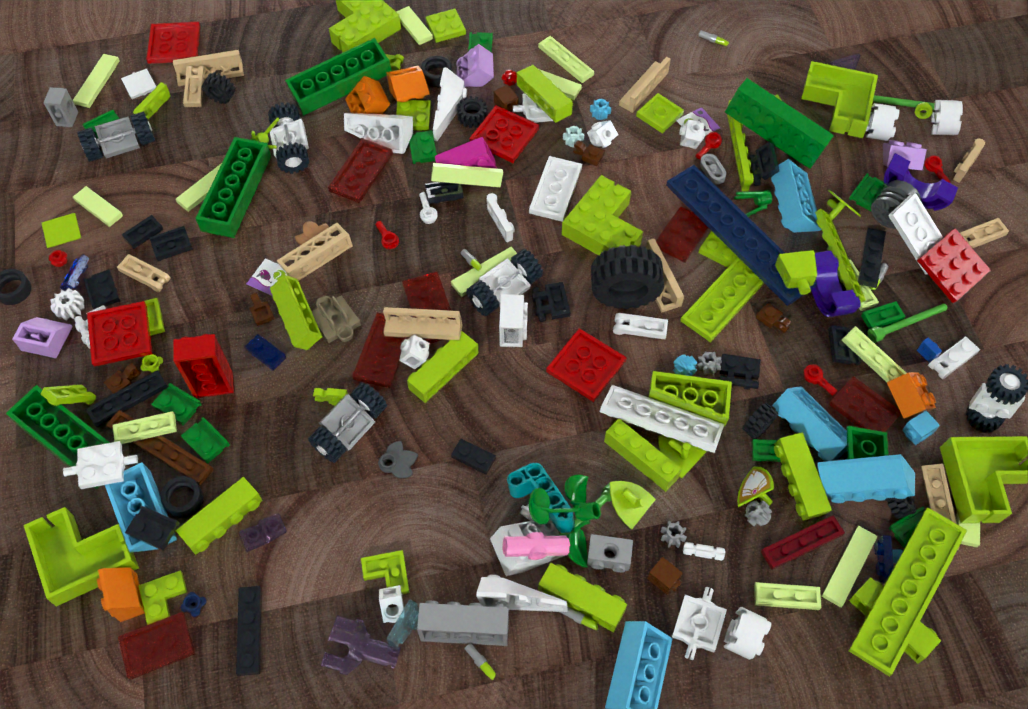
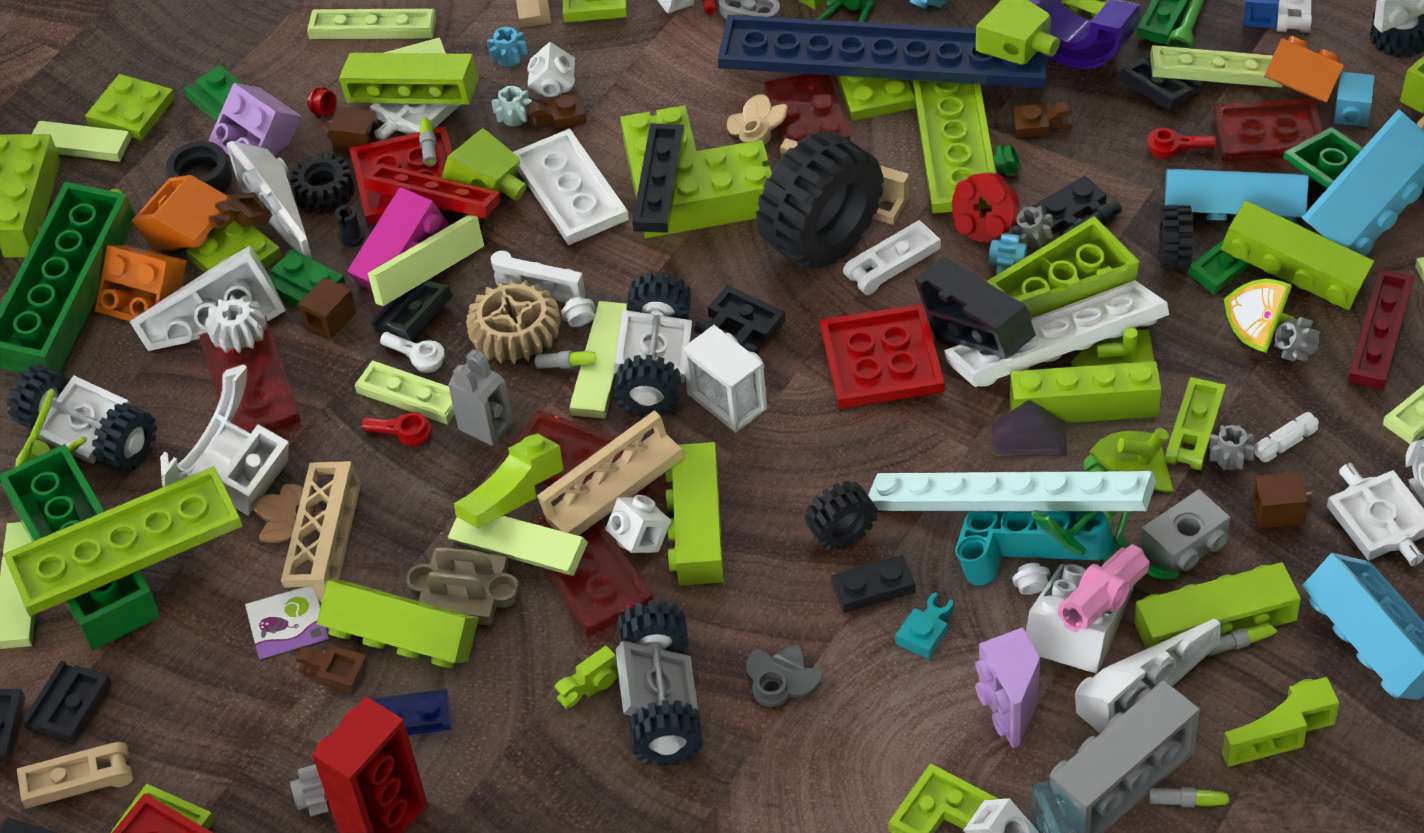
camera: 40 degrees left, 10 degrees down
(238, 198) = (122, 540): none -> lime plate
(314, 197) = (242, 459): none -> white piece
(369, 319) = (523, 543): none -> yellowish green tile
(373, 144) = (235, 324): none -> white gear
(388, 294) = (513, 482): none -> lime slope
(407, 224) = (406, 391): none -> yellowish green tile
(416, 165) = (327, 307): none -> reddish brown brick
(417, 250) = (480, 399): none -> light grey hinge
(428, 99) = (243, 208): none -> reddish brown plate
(459, 136) = (350, 231): none -> black pin
(464, 549) = (1009, 682): none -> lavender slope
(468, 493) = (925, 630): none -> teal plate
(469, 221) = (513, 321): none -> tan gear
(487, 417) = (841, 515): none -> black tyre
(498, 244) = (578, 311): none -> white plate
(499, 148) = (444, 193): none -> red plate
(523, 126) = (427, 142): none -> light grey piece
(530, 154) = (485, 164): none -> lime torso
(553, 472) = (1013, 491): none -> light aqua plate
(566, 673) = (1308, 707): none -> lime slope
(578, 213) = (658, 178): none -> black plate
(604, 451) = (1029, 432): none -> clear purple slope
(634, 378) = (972, 310): none -> black wedge
(657, 221) = (756, 119): none -> tan plate
(673, 509) = (1195, 422): none -> lime plate
(688, 337) = (966, 209): none -> red plate
(735, 324) = (1007, 160): none -> green plate

